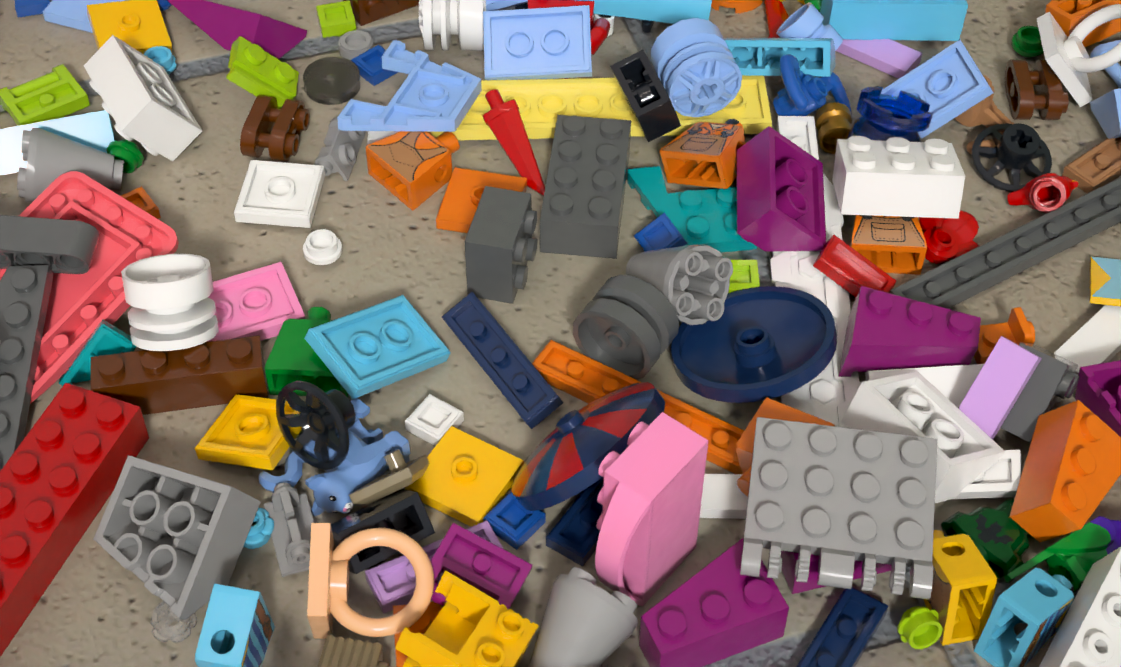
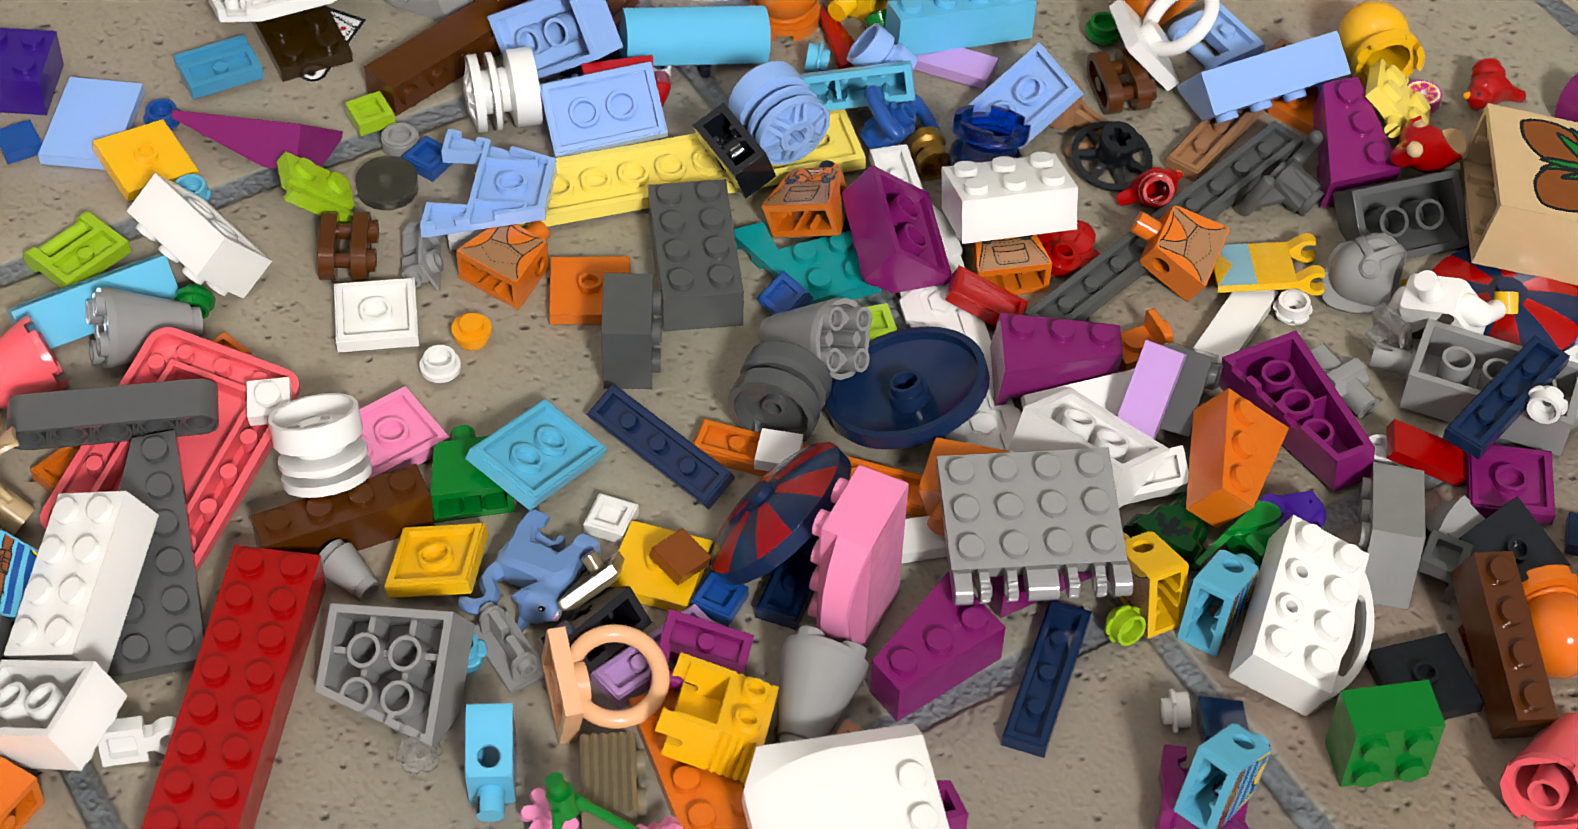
camera: 15 degrees left, 0 degrees up
(103, 341) = (253, 498): teal tile -> none
(141, 246) = (265, 397): none -> white plate
(169, 424) = (348, 569): none -> light grey cone
(322, 419) = (511, 535): black wheel -> none
(361, 222) = (471, 331): none -> light orange plate
(483, 471) = (680, 556): none -> dark orange tile
(510, 132) = (600, 210): red bar -> none
(609, 378) = (775, 447): none -> white tile
(751, 27) = (817, 58): none -> medium azure plate
(1060, 253) = (1180, 248): none -> orange torso

